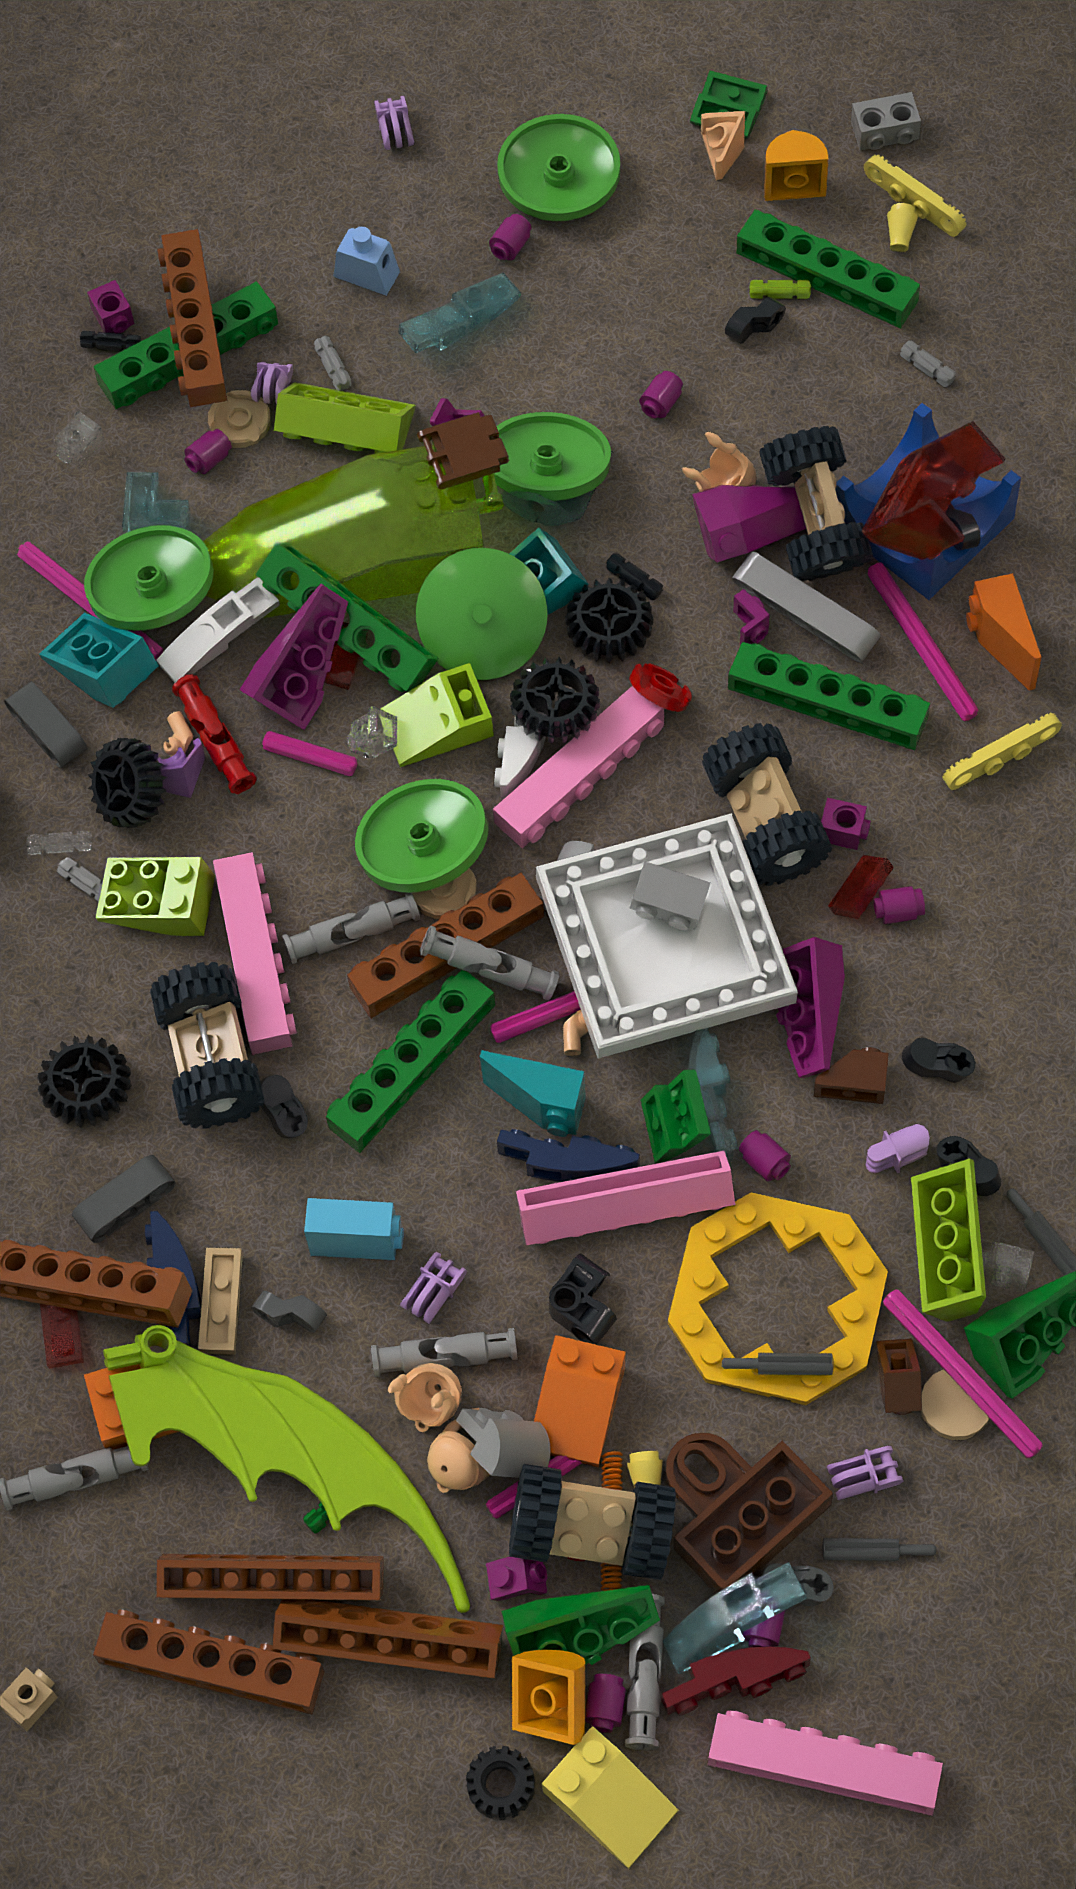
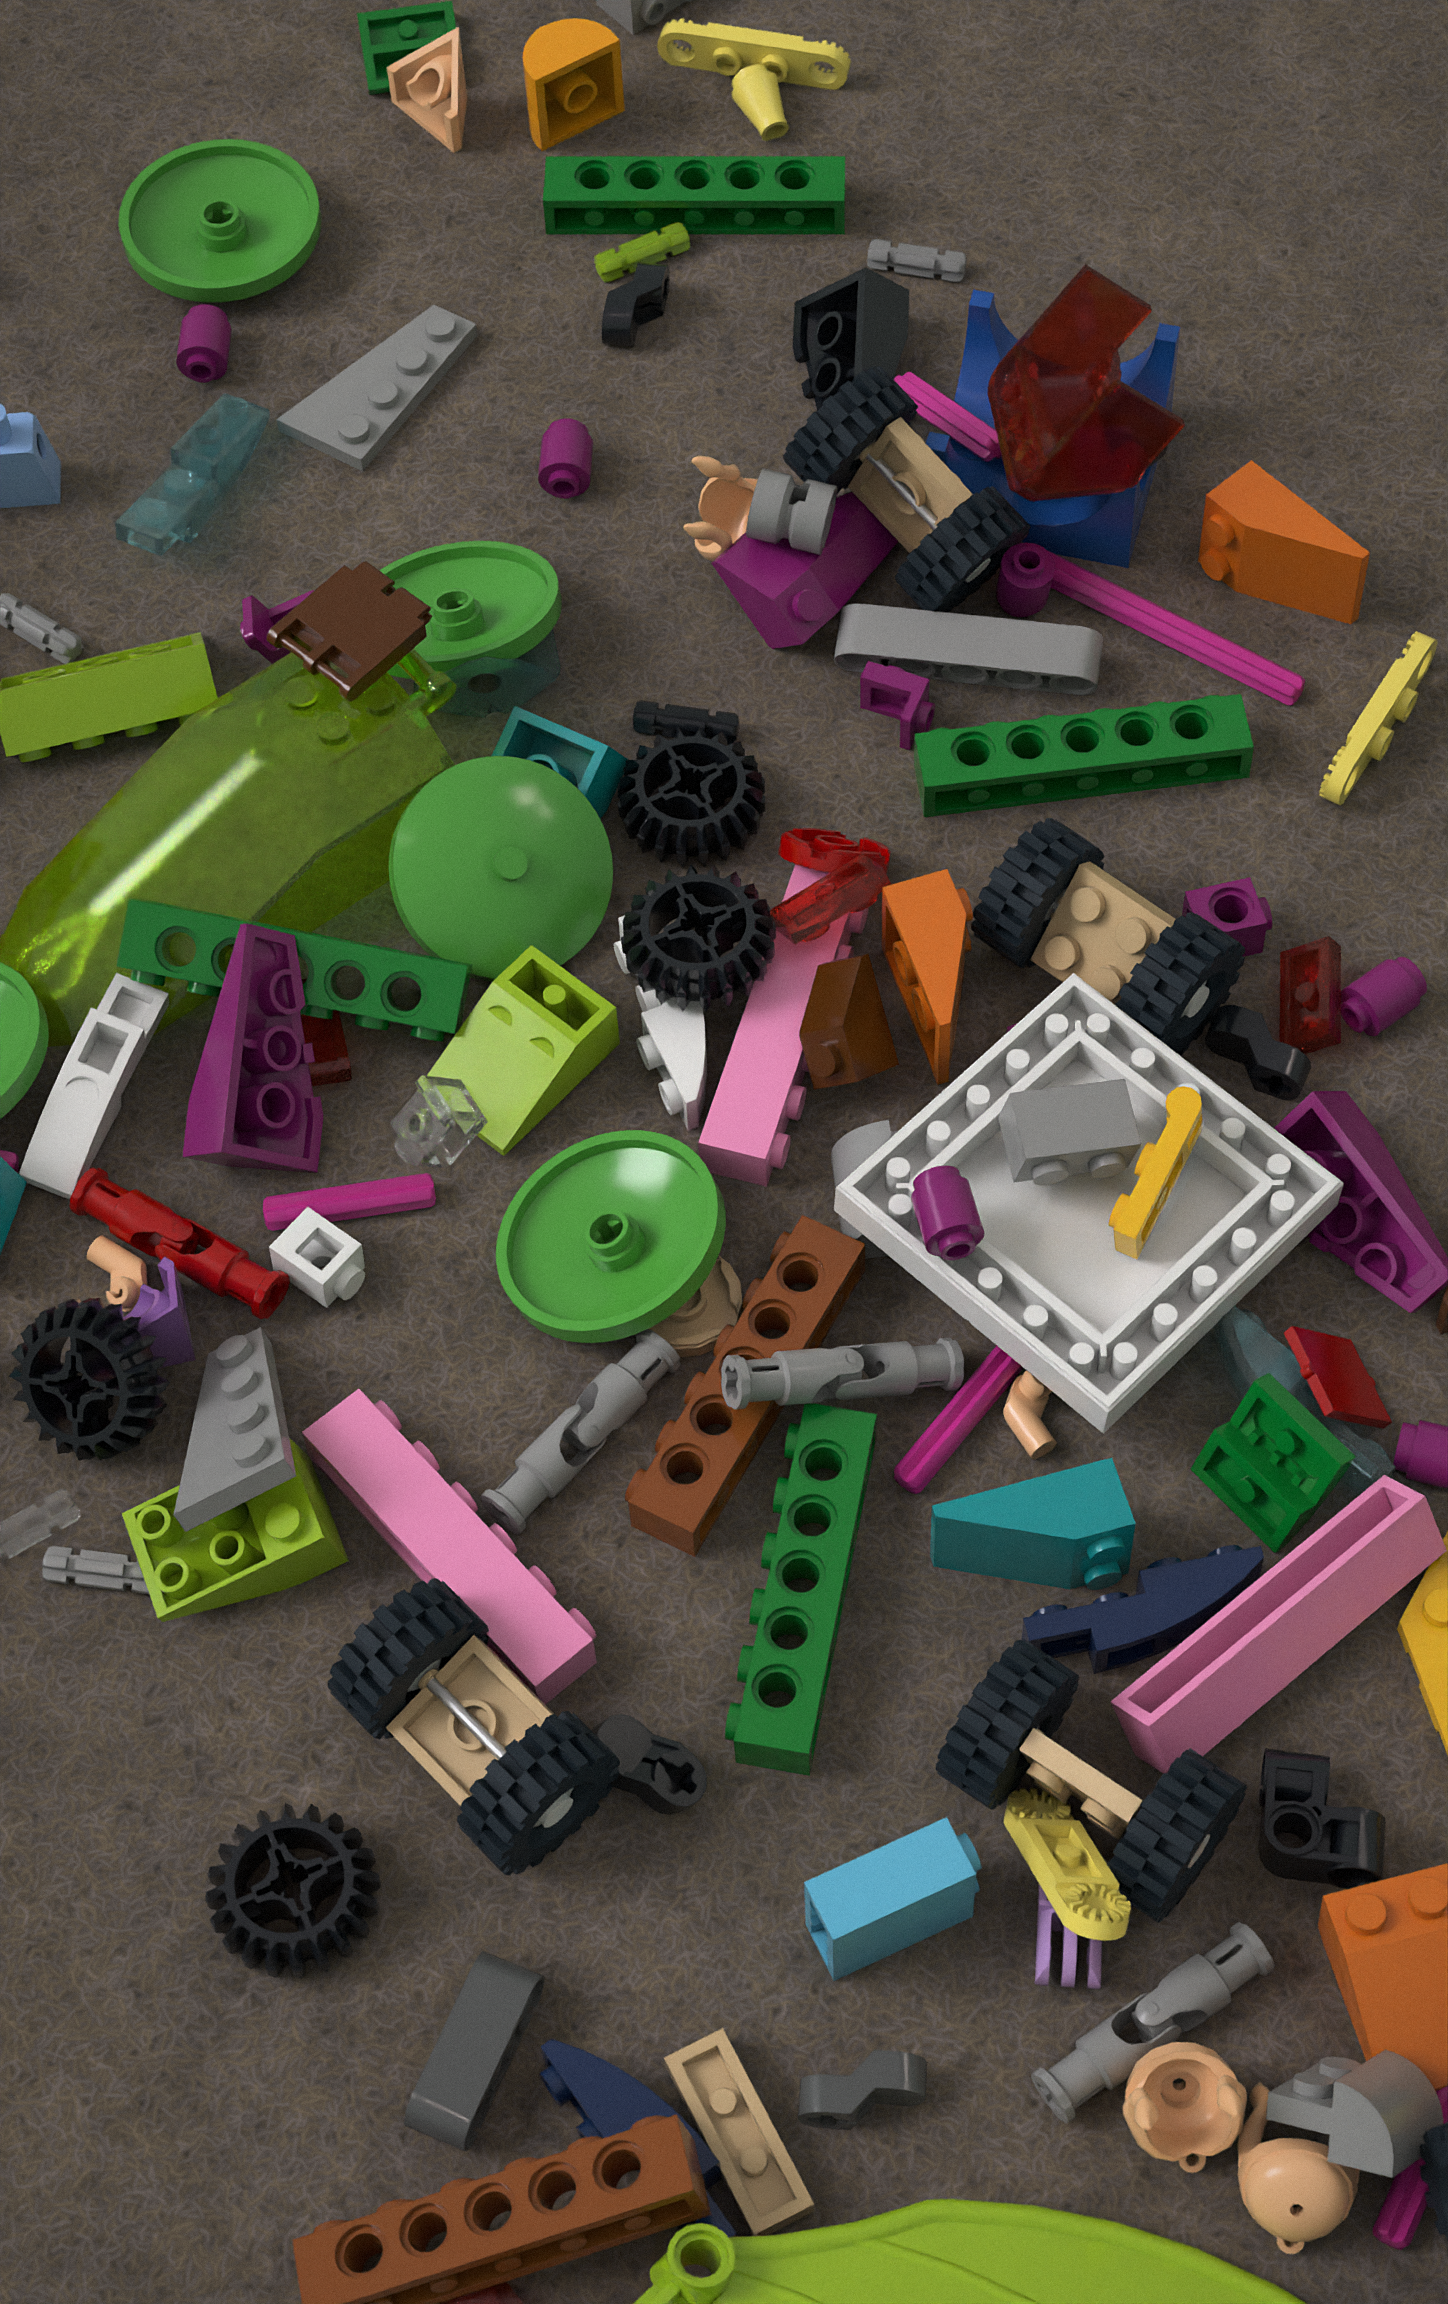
camera: 30 degrees left, 5 degrees down
(180, 845) = (237, 1432): none -> light grey wing
(272, 767) = (317, 1243): none -> white brick
(441, 1255) = (1067, 1865): none -> light yellow plate
(457, 1182) = (1009, 1733): none -> black plate
(577, 907) = (946, 1213): none -> magenta brick
(586, 308) = (378, 392): none -> light grey wing
(604, 784) = (845, 1025): none -> reddish brown slope
(643, 711) = (842, 891): none -> clear red plate
(672, 771) = (926, 953): none -> orange slope
(702, 939) = (1157, 1172): none -> yellow plate
(737, 1090) = (1337, 1377): none -> red piece
(744, 486) = (791, 511): none -> light grey wheel
(811, 891) = (1270, 1064): none -> black piece
(858, 396) = (849, 330): none -> black wedge
(859, 581) = (1025, 579): none -> magenta brick
(873, 463) = (951, 417): none -> dark pink axle

